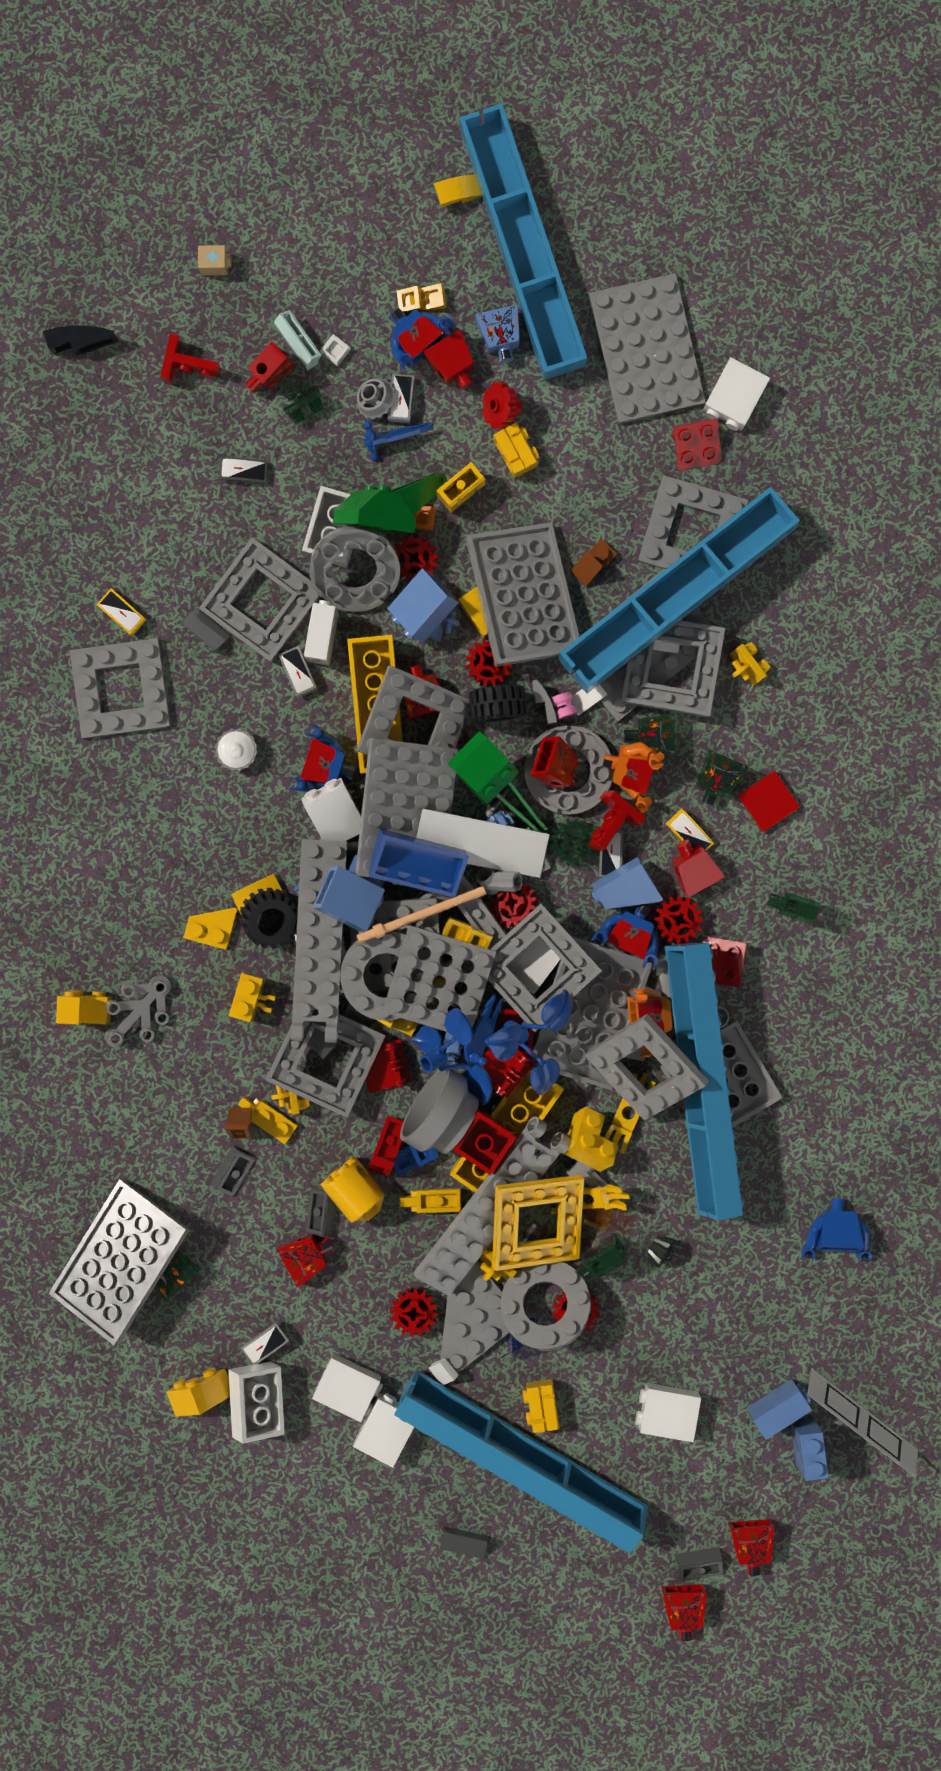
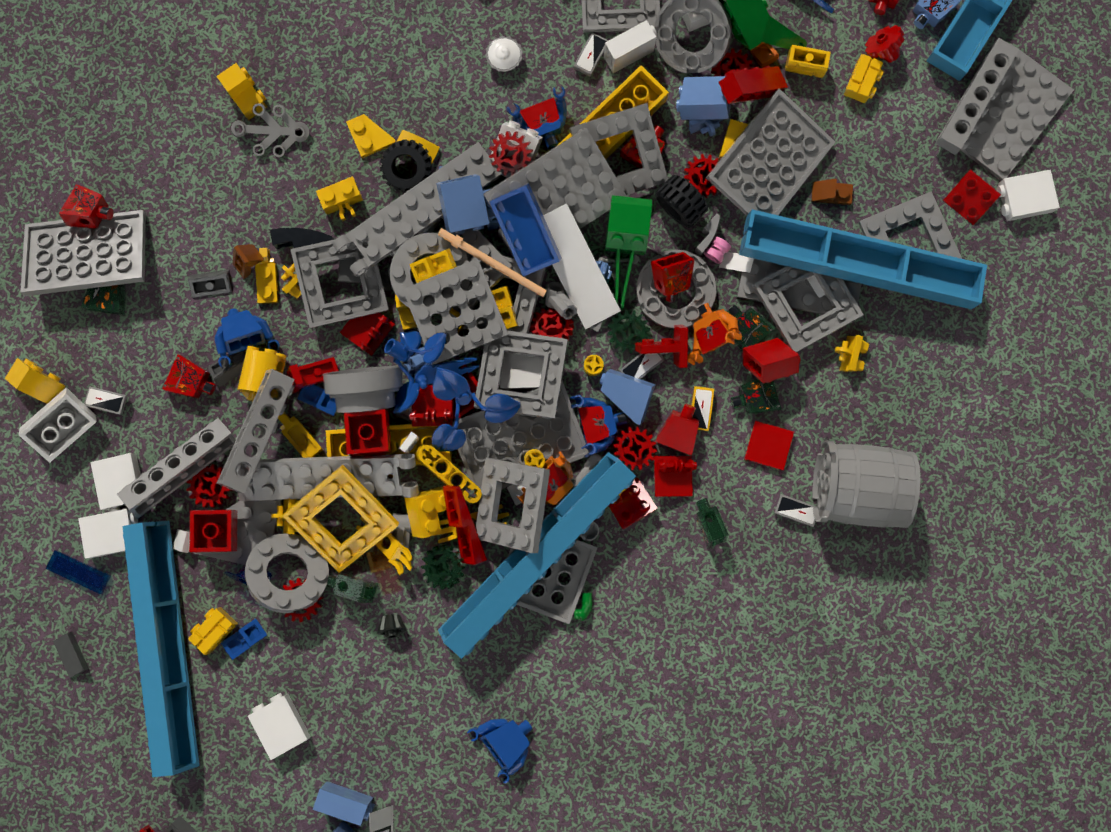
camera: 50 degrees right, 5 degrees down
(79, 1229) = (85, 208): none -> red torso
(258, 1062) = (297, 237): none -> black slope
(301, 1180) = (240, 331): none -> blue torso
(329, 812) = (506, 147): none -> red gear
(382, 968) = (432, 265): none -> yellow slope
(386, 1337) = (173, 476): none -> light grey brick
(397, 1481) = (78, 572): none -> clear blue tile
(405, 1250) = (229, 477): none -> light grey brick
(446, 555) = (752, 84): none -> red brick
(459, 1339) = (213, 530): none -> red brick
(521, 1112) = (409, 443): none -> white tile
(570, 1384) = (243, 639): none -> blue slope
(574, 1099) = (450, 471): none -> yellow beam
(579, 894) = (593, 361): none -> yellow wheel
(597, 310) = (999, 52): none -> light grey brick
(618, 1119) = (460, 517): none -> red slope
(624, 1017) = (535, 461): none -> yellow wheel
(648, 1164) = (435, 571): none -> clear green gear
(700, 741) = (771, 360): none -> red brick
(729, 905) = (673, 475): none -> red hinge
(782, 1076) = (586, 607): none -> green arm
(843, 824) = (795, 510): none -> slope
(874, 751) = (866, 485): none -> light grey piece

